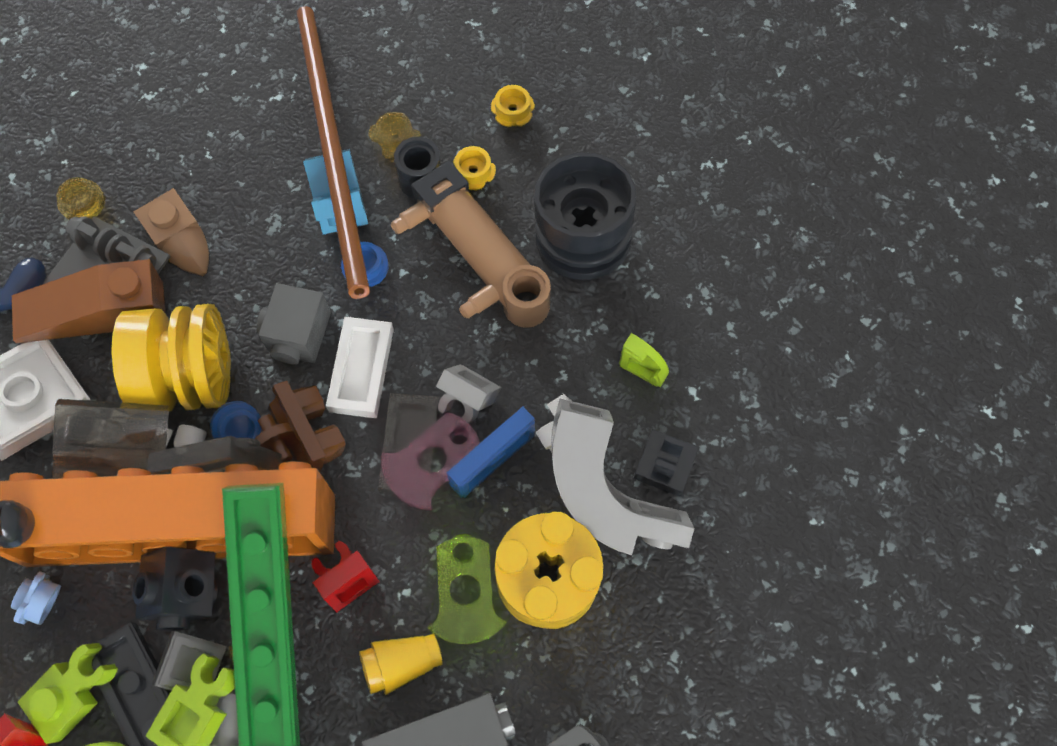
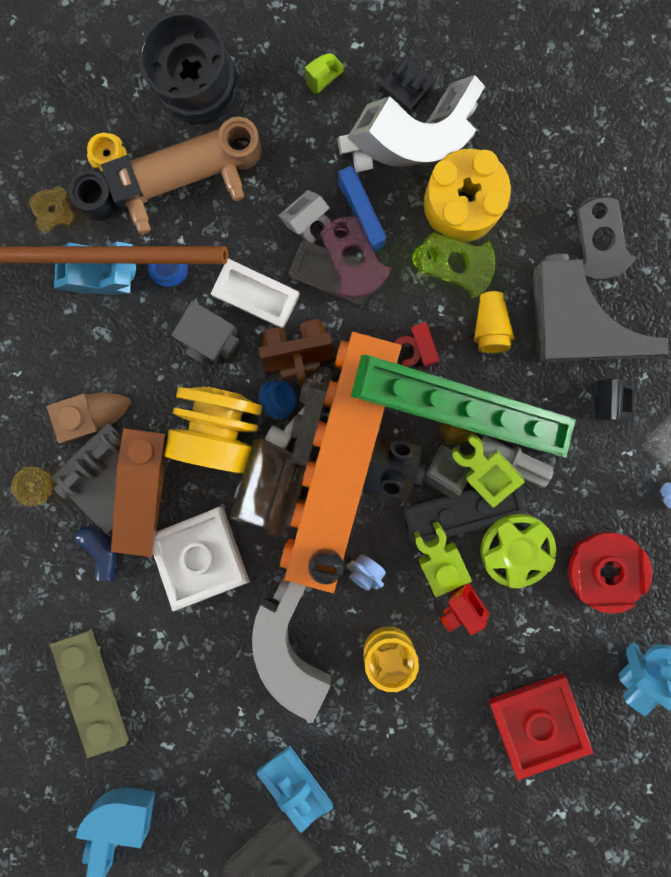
camera: 70 degrees left, 20 degrees up
(512, 97) = (48, 93): yellow plate -> none

